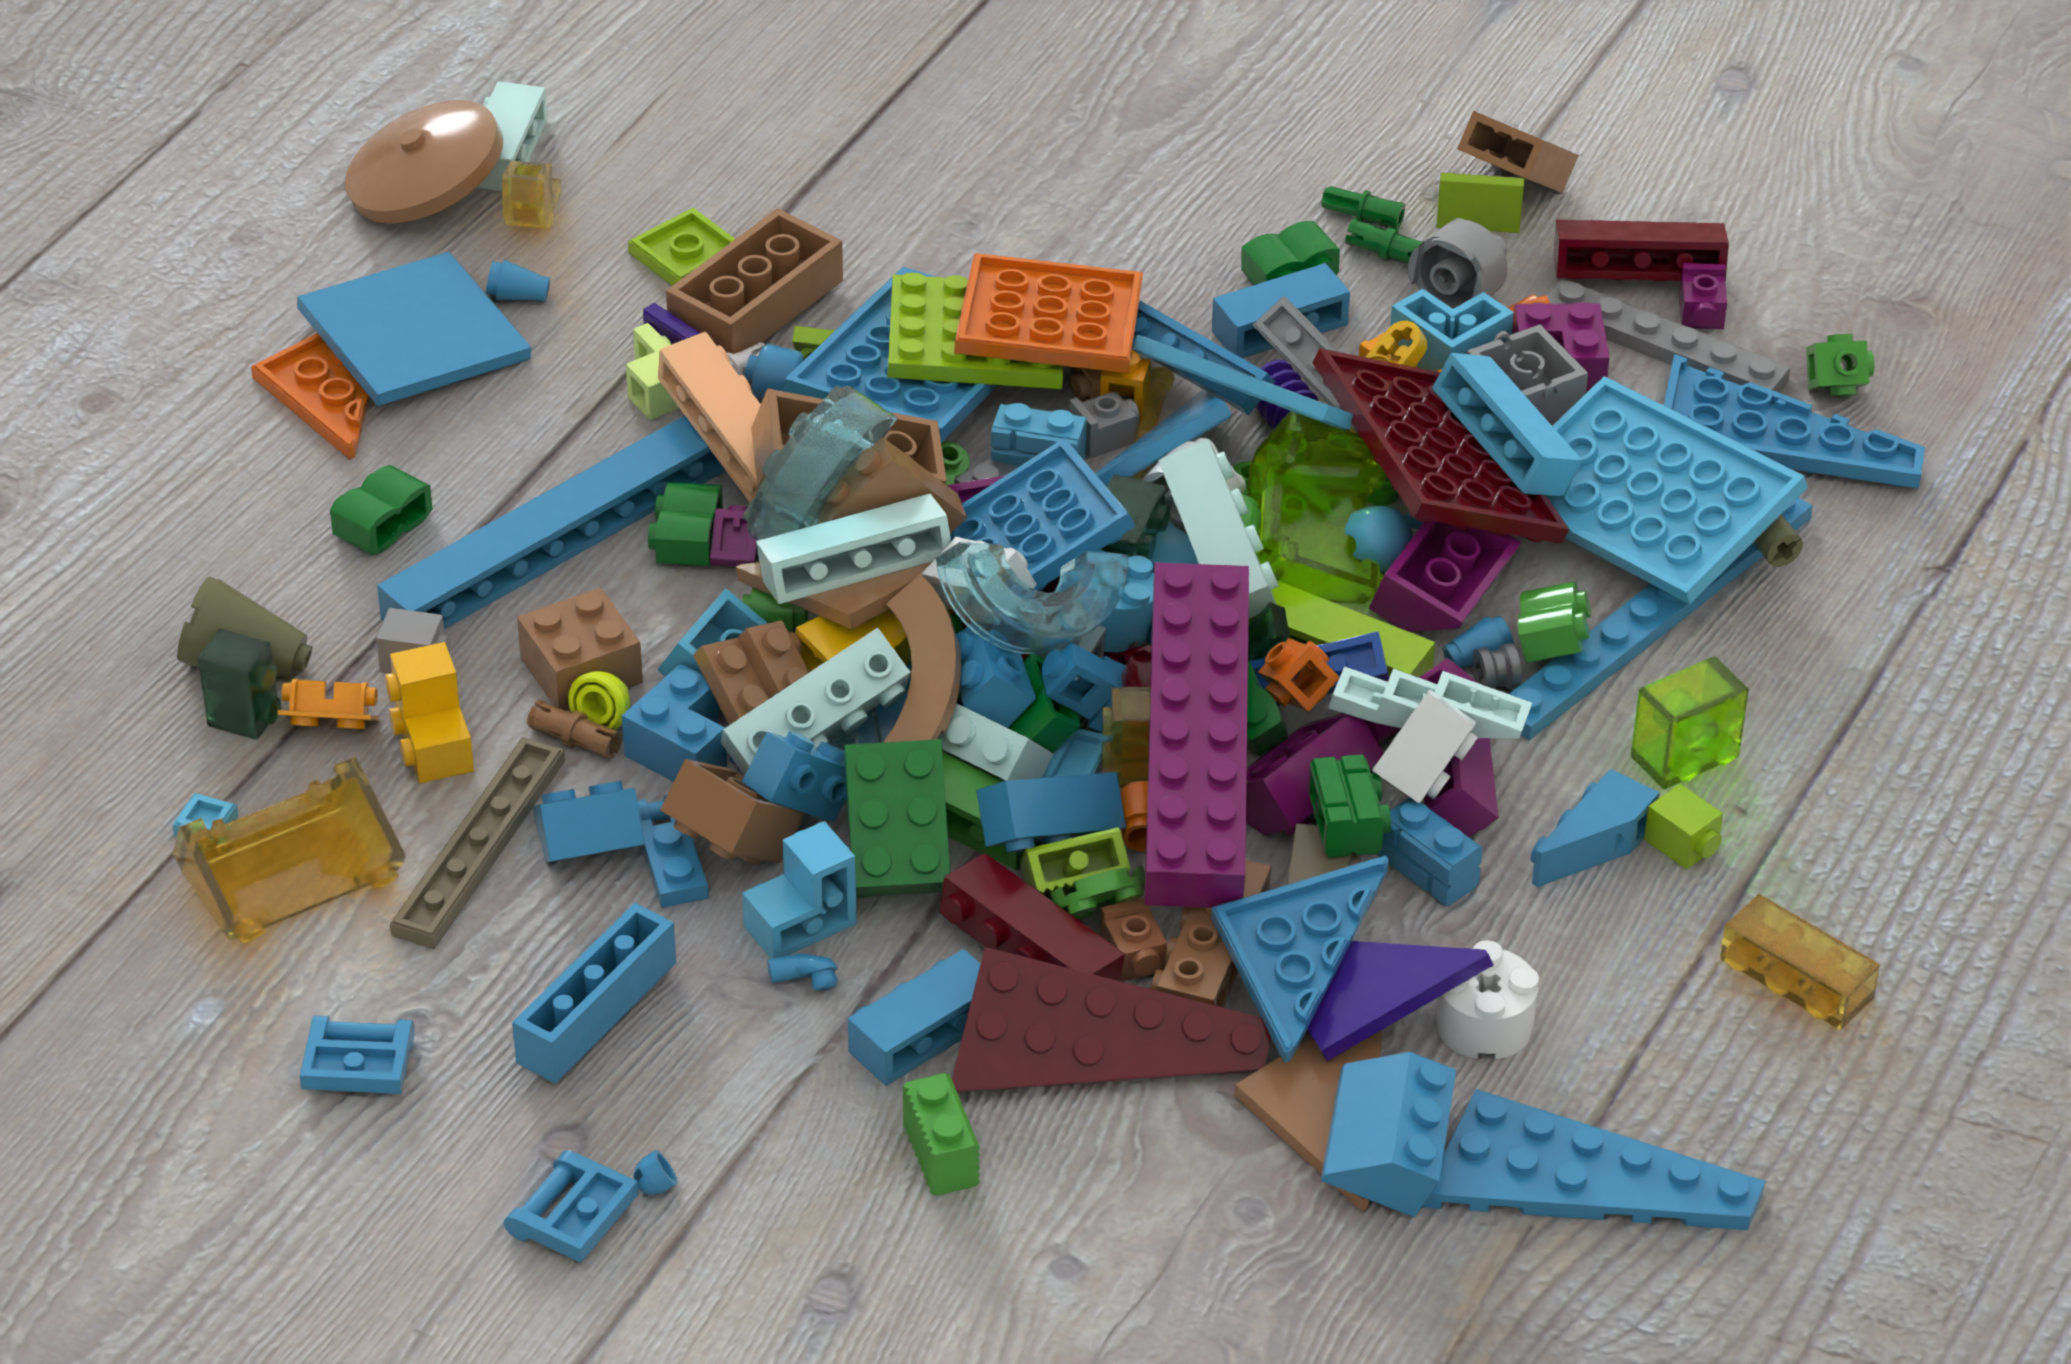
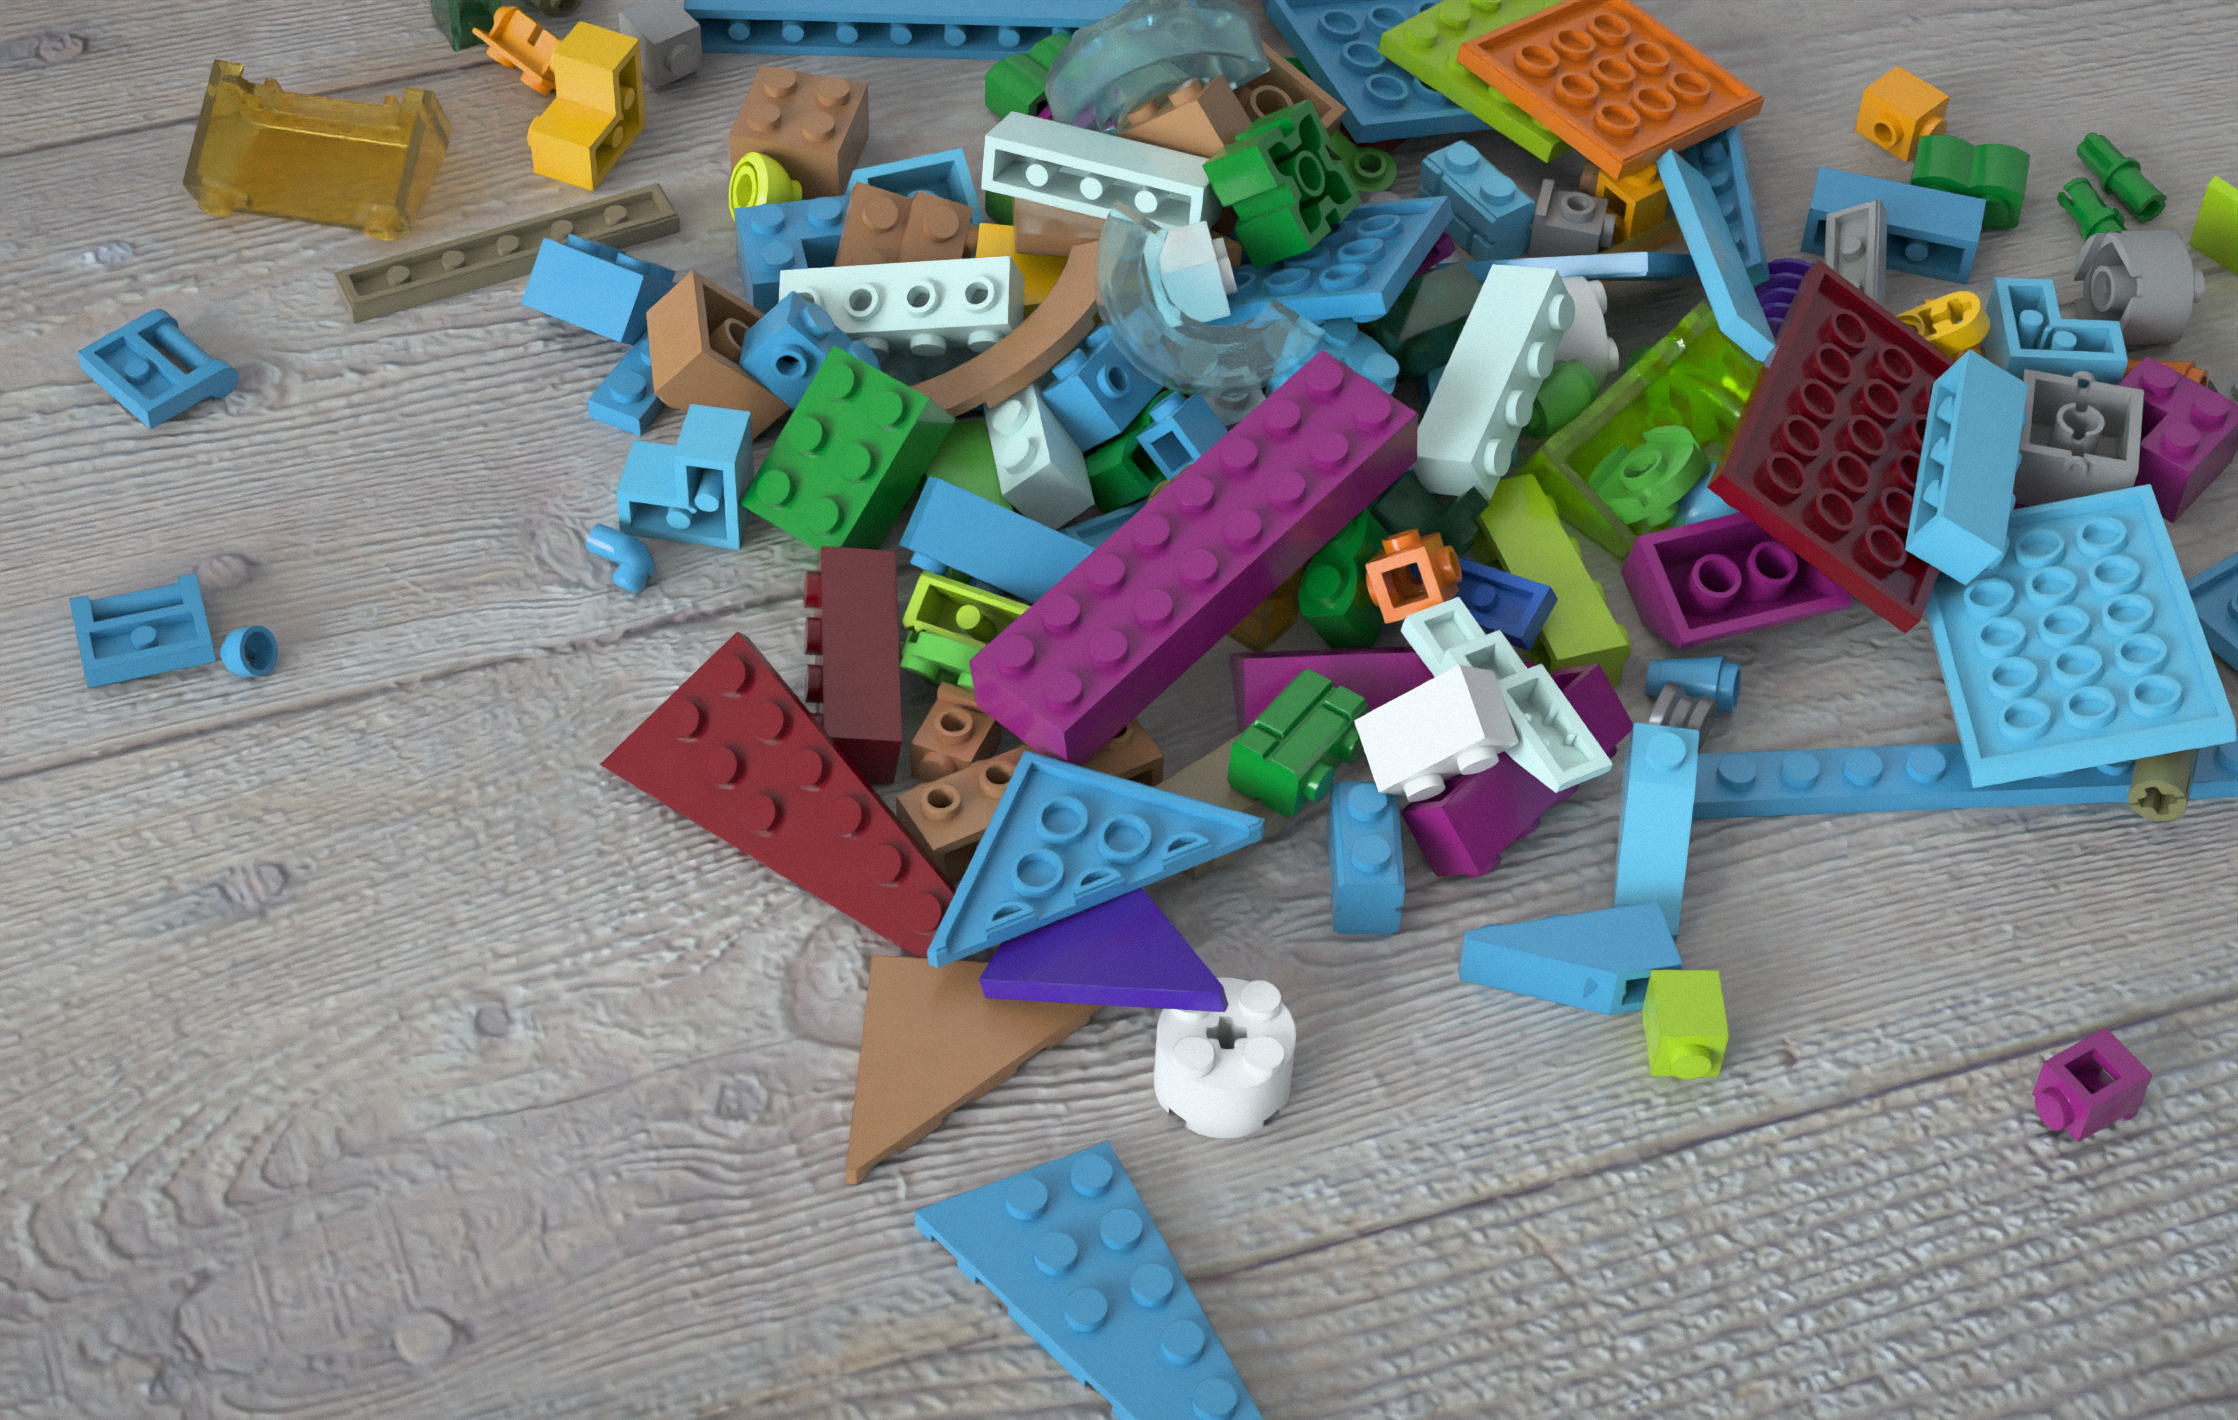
camera: 40 degrees right, 5 degrees up
(206, 808) = (318, 80): medium azure tile -> none
(574, 729) = (711, 204): medium nougat pin -> none
(594, 993) = (397, 449): dark azure brick -> none
(914, 1019) = (631, 668): dark azure brick -> none
(940, 1134) = (526, 796): bright green brick -> none
(979, 486) = (1282, 184): none -> green brick
(1209, 239) = (1900, 111): none -> light orange brick
(1359, 531) = (1651, 476): none -> bright green plate
(1390, 1129) = (946, 1114): dark azure slope -> none
(1553, 621) = (1792, 707): bright green brick -> none
(1559, 728) = (1656, 818): none -> medium azure slope
(1689, 722) = (1812, 912): clear neon green brick -> none
(1799, 961) = (1634, 1266): clear yellow brick -> none
(1900, 734) = (2080, 1095): none -> magenta brick

